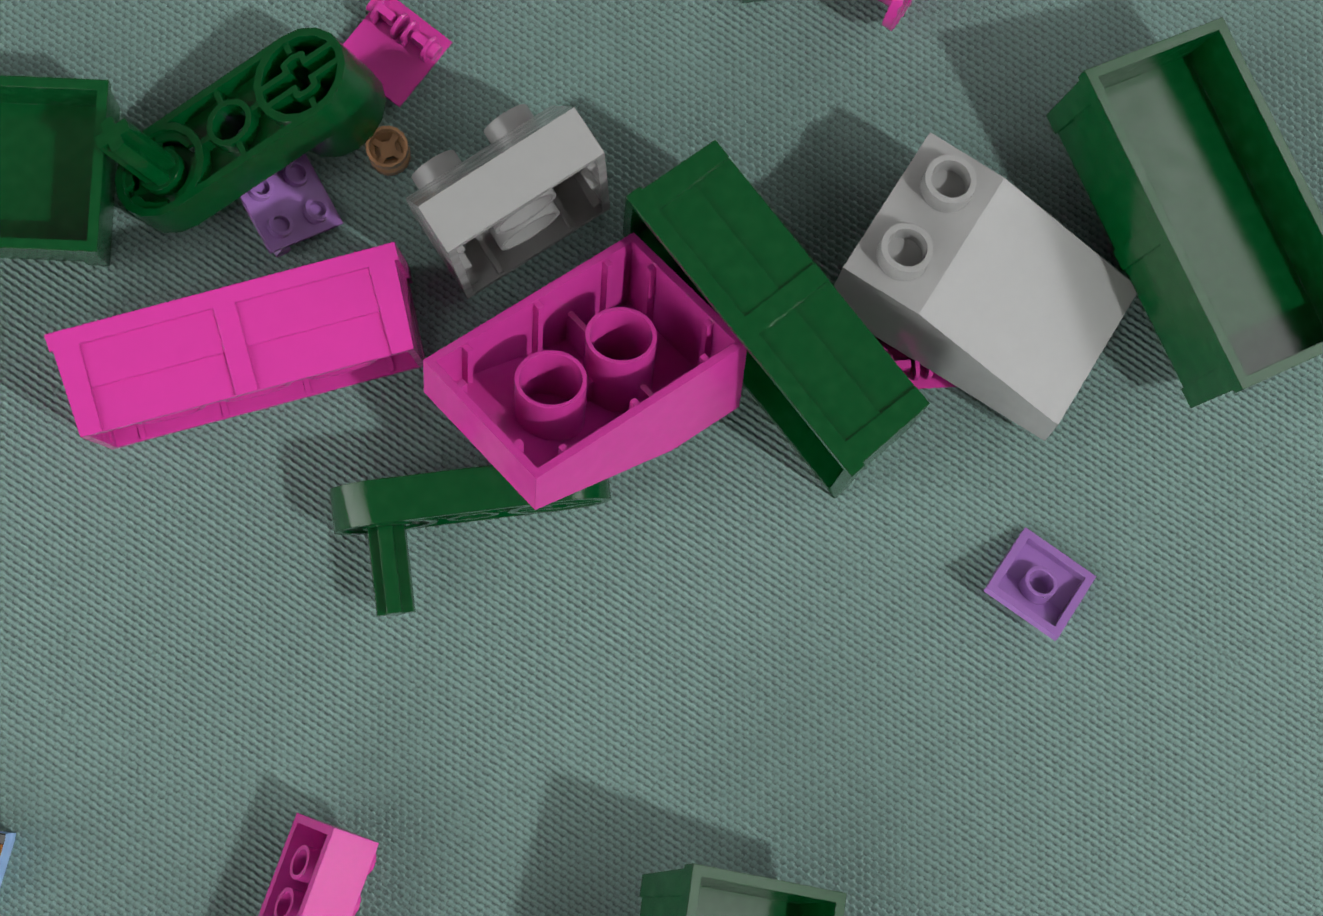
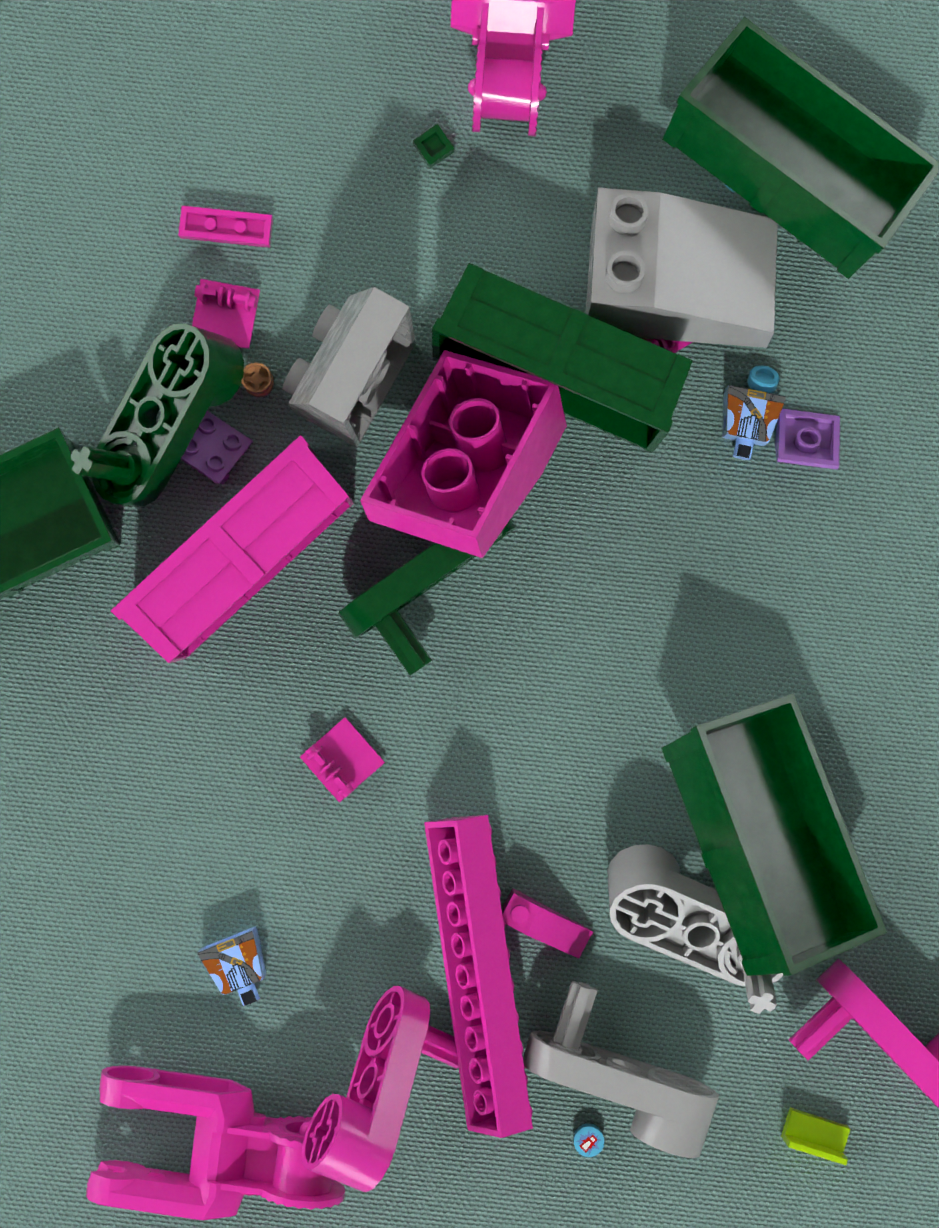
camera: 30 degrees left, 5 degrees up
(237, 679) = (342, 759): none -> dark pink hinge
(978, 519) = (749, 418): none -> torso
(1021, 479) = (763, 379): none -> medium azure tile

